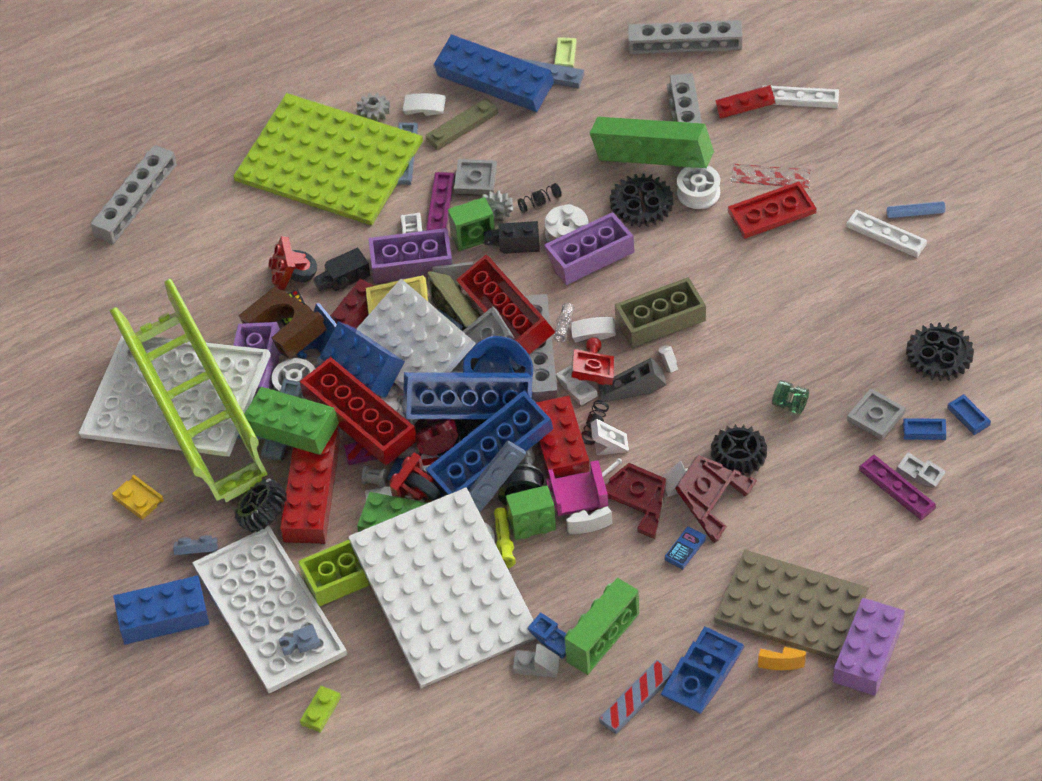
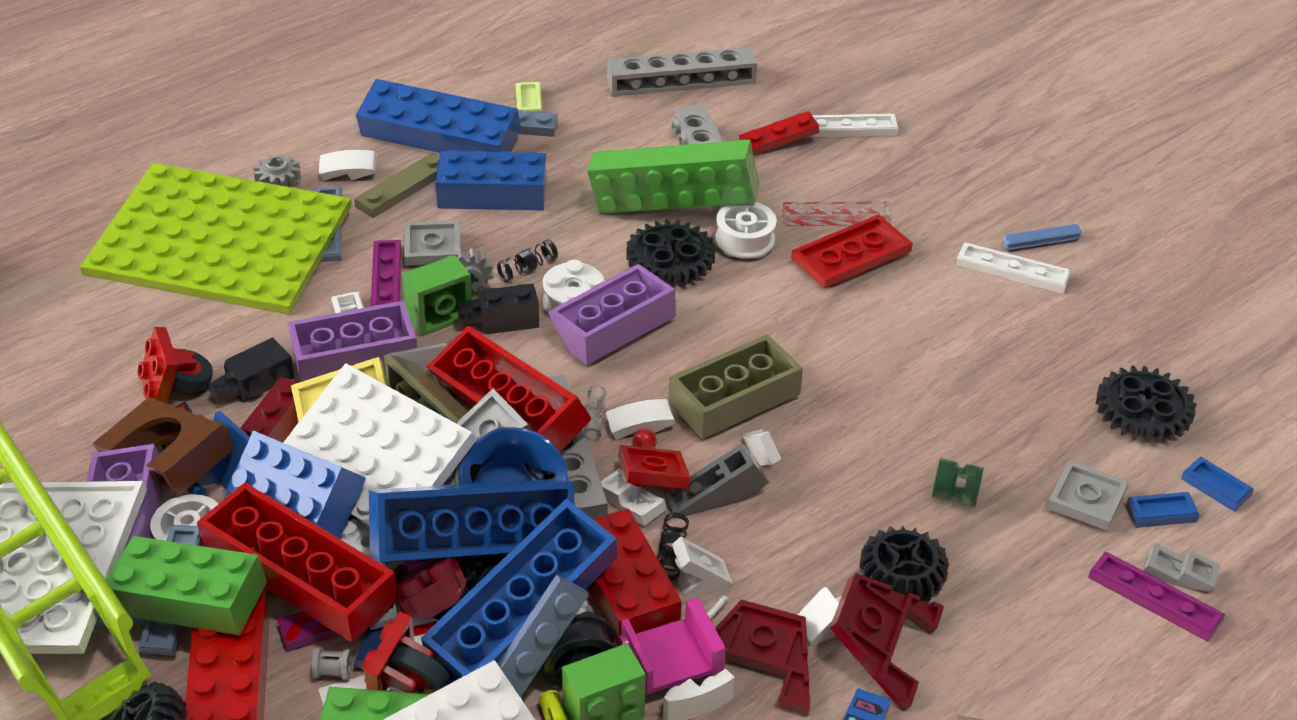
camera: 15 degrees left, 10 degrees down
(525, 128) = (491, 180): none -> blue brick

